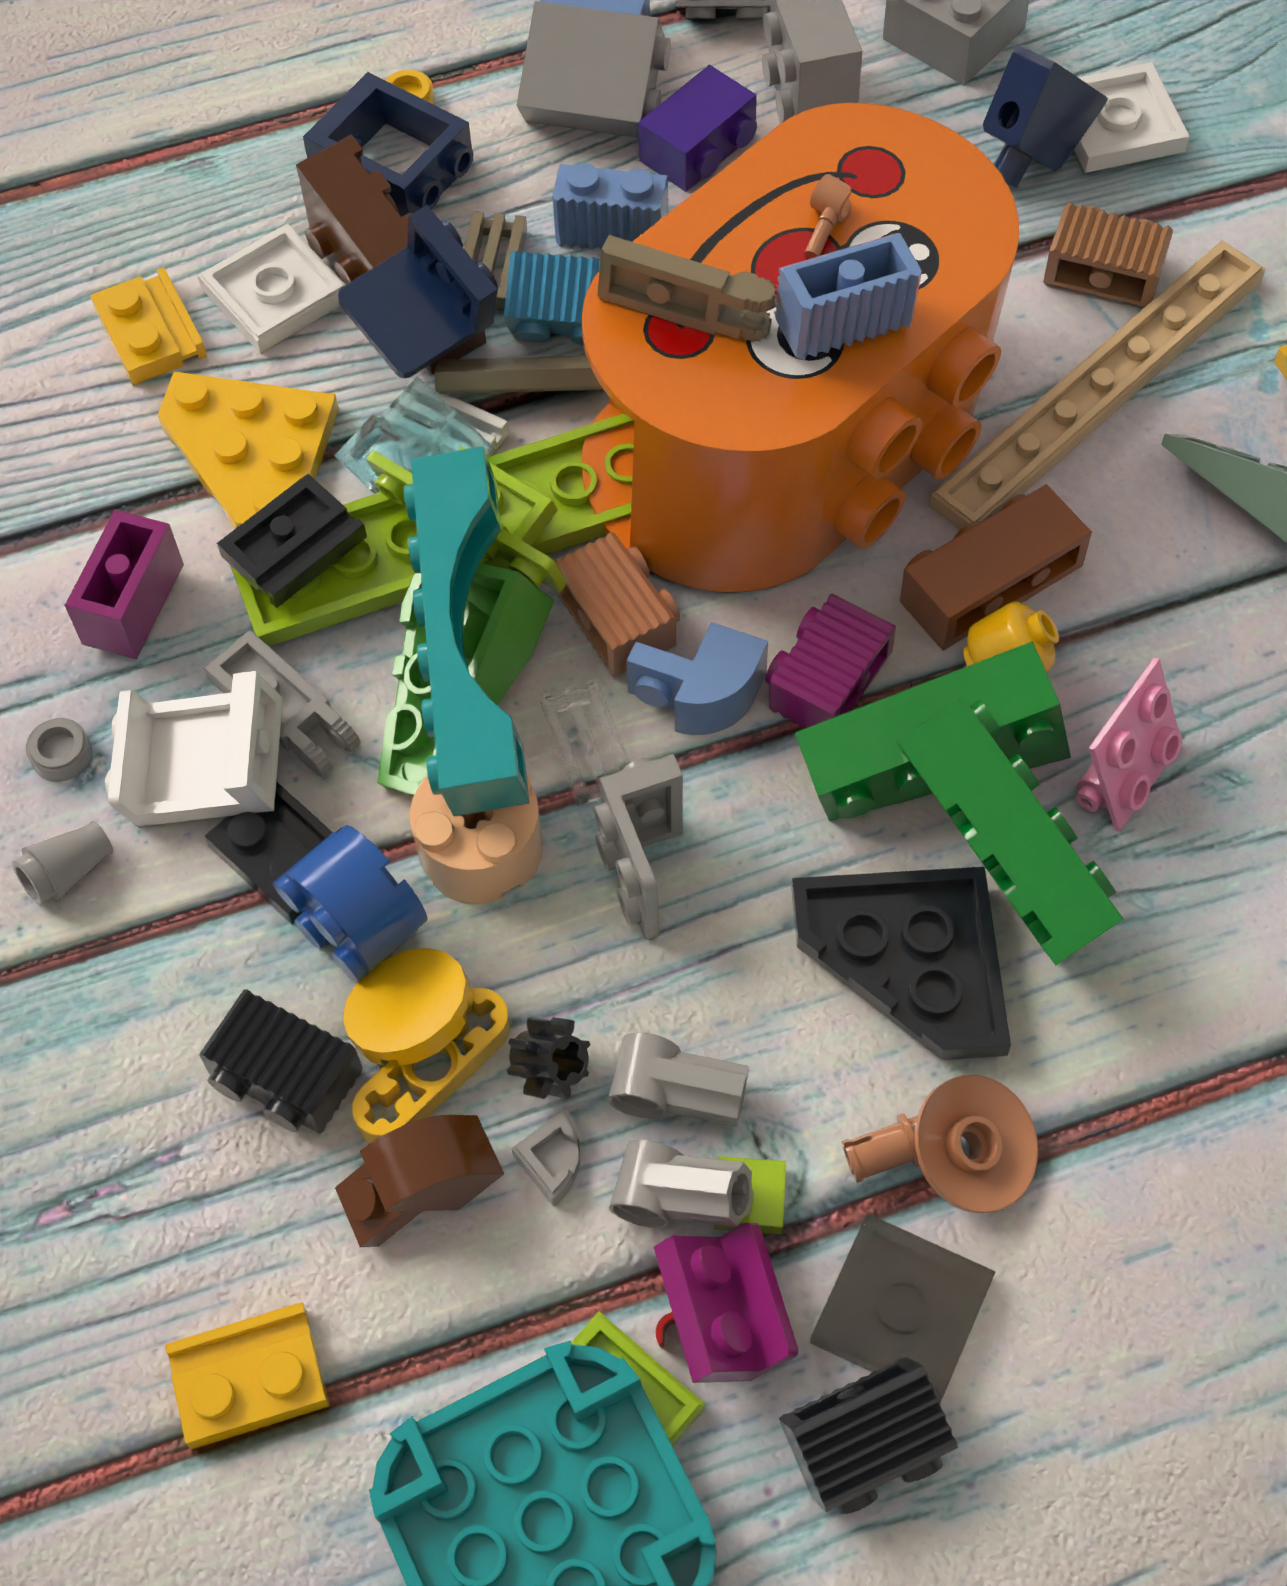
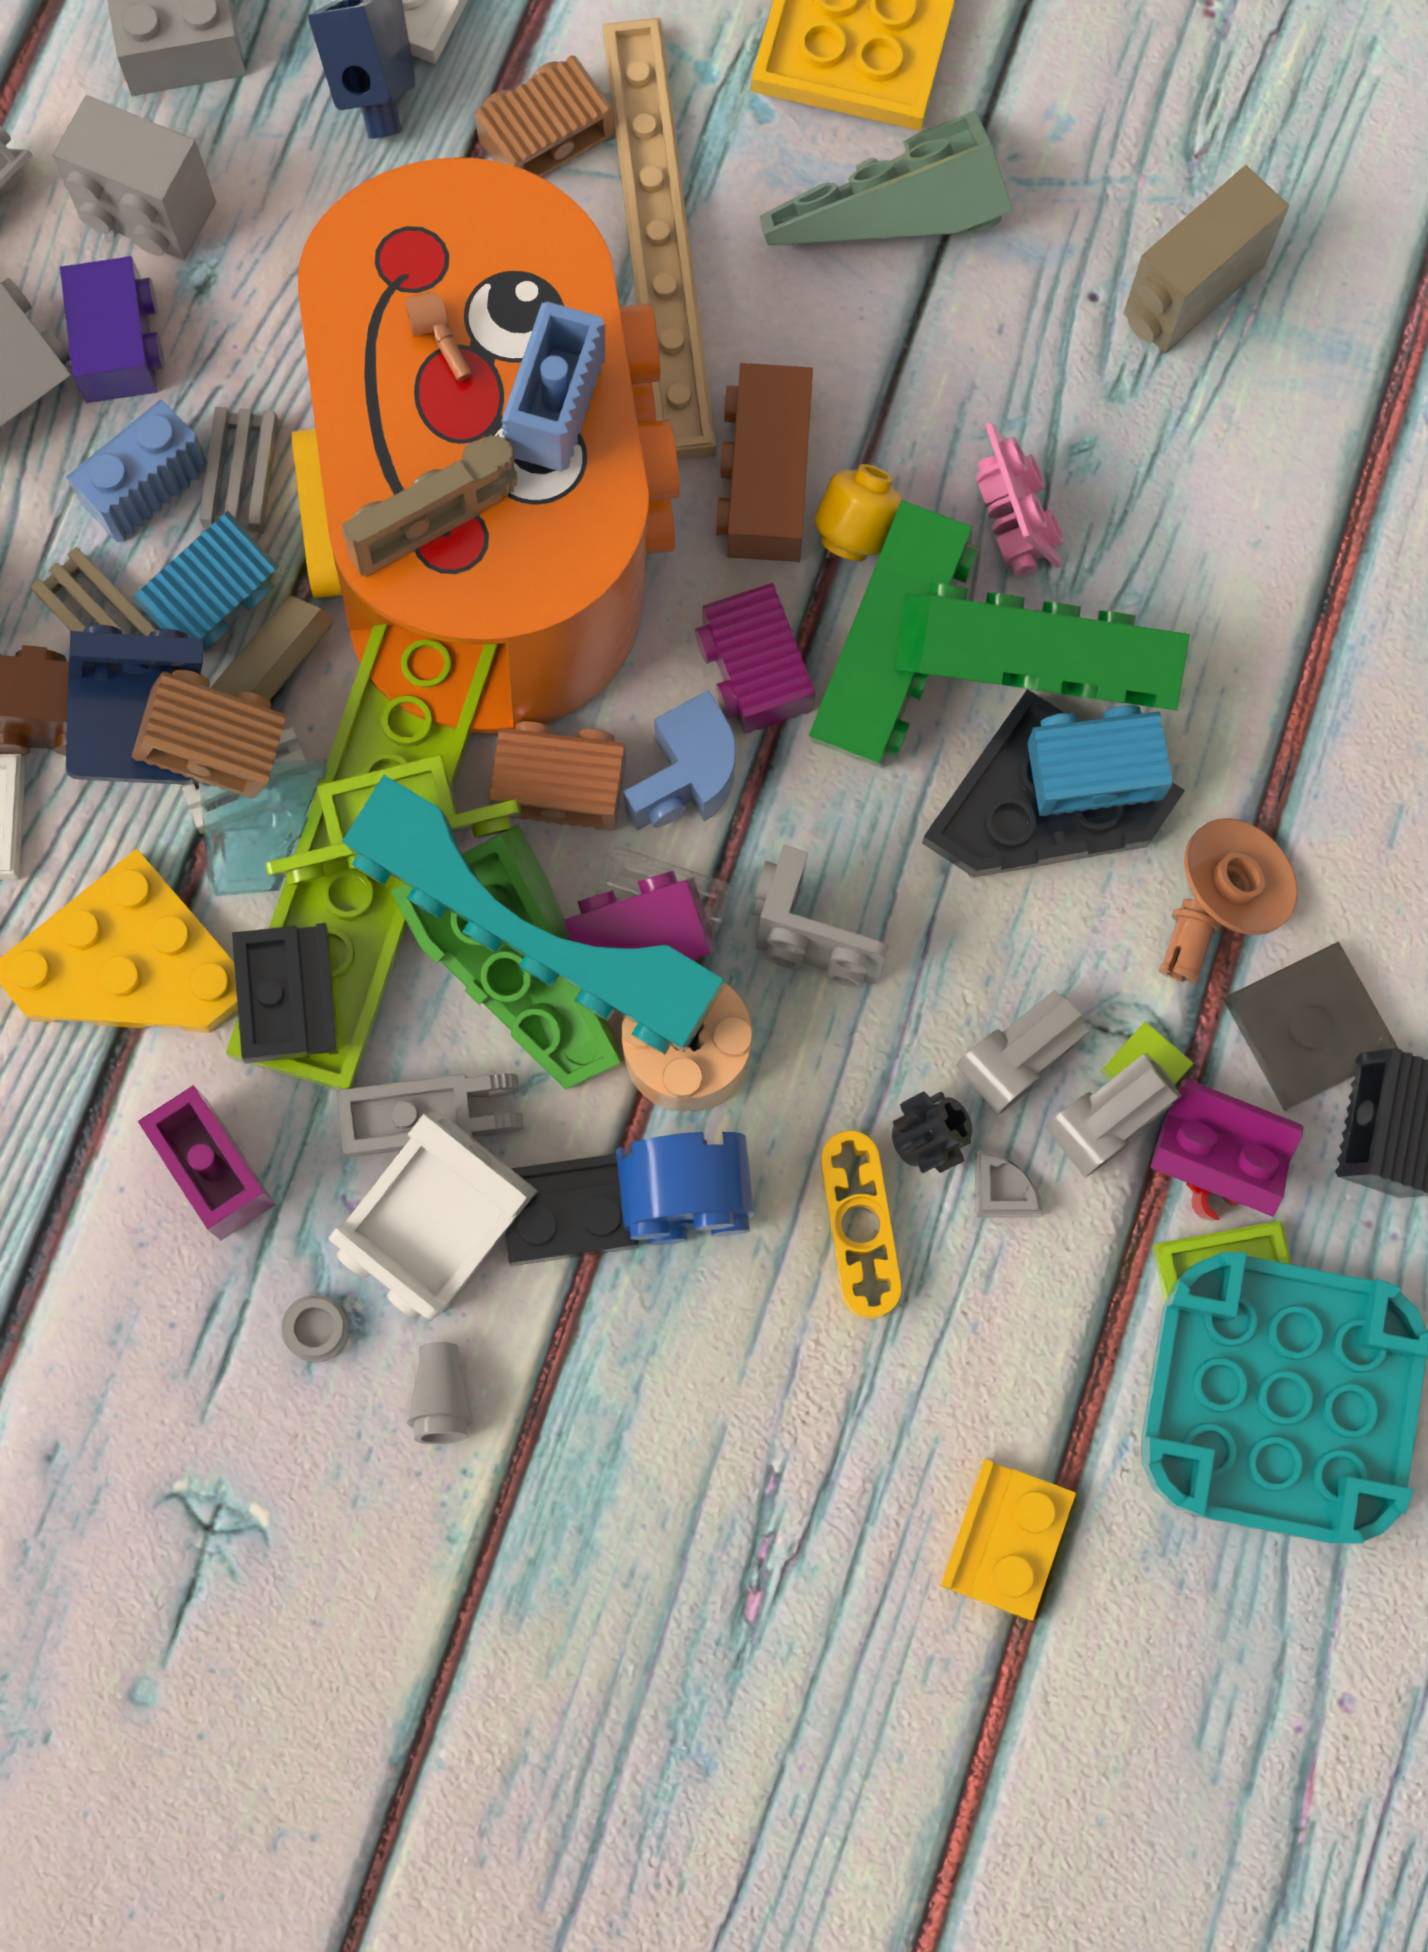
camera: 55 degrees left, 15 degrees up
(281, 1063) = (772, 1340): black brick -> none
(408, 1006) = (805, 1207): yellow tile -> none
(417, 1169) = (956, 1302): reddish brown brick -> none
(438, 350) = (209, 733): none -> medium nougat brick
(558, 737) = (661, 915): none -> magenta brick
(965, 951) = (1099, 760): none -> dark azure brick

